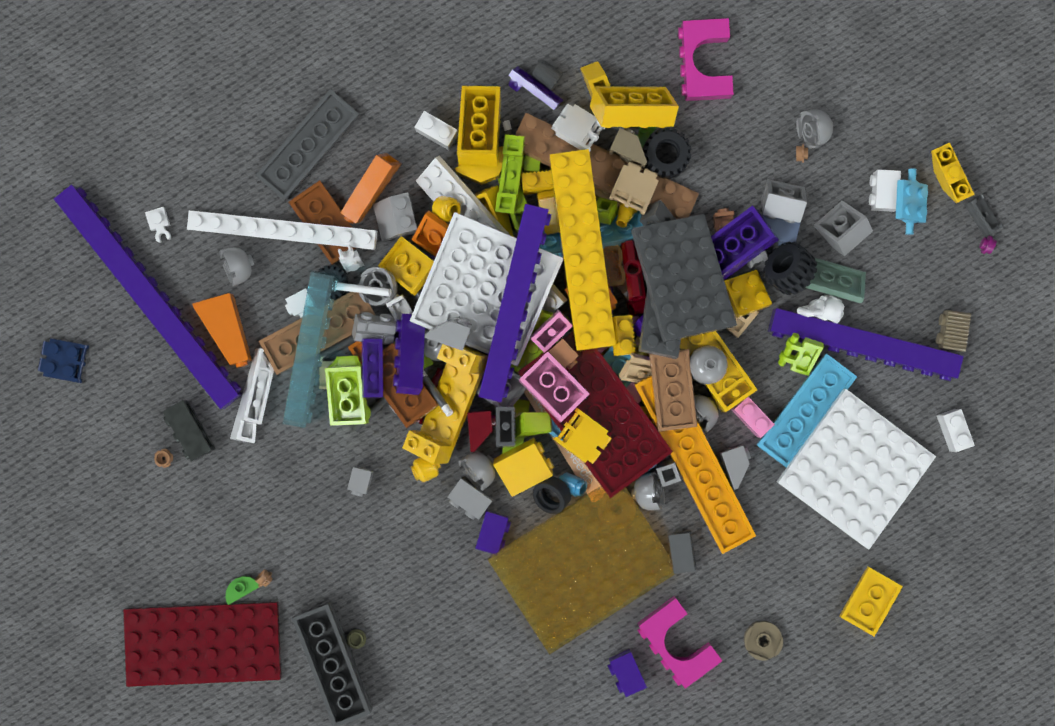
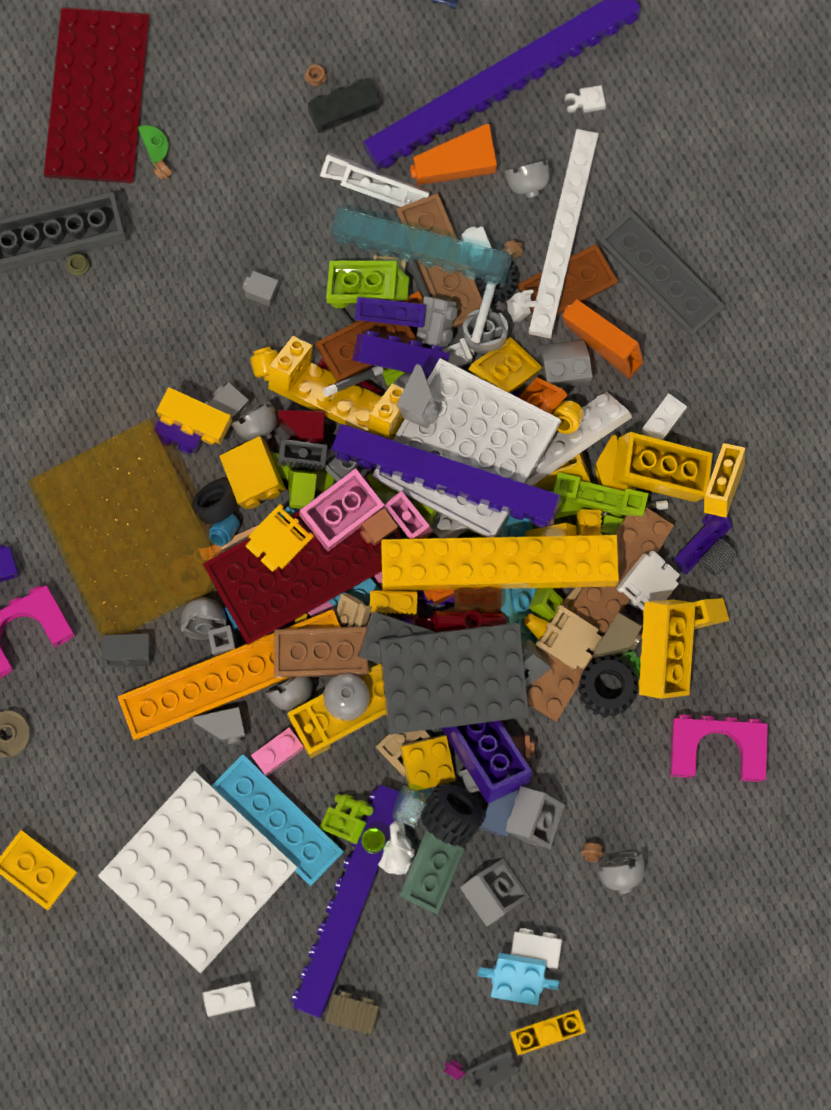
camera: 90 degrees right, 10 degrees down
(301, 272) = (513, 248): none -> medium nougat plate
(483, 73) = (724, 480): none -> yellow brick
(483, 522) = (193, 417): none -> yellow brick
(787, 303) = (409, 806): none -> clear light blue brick
(824, 329) = (373, 837): none -> clear neon green wheel

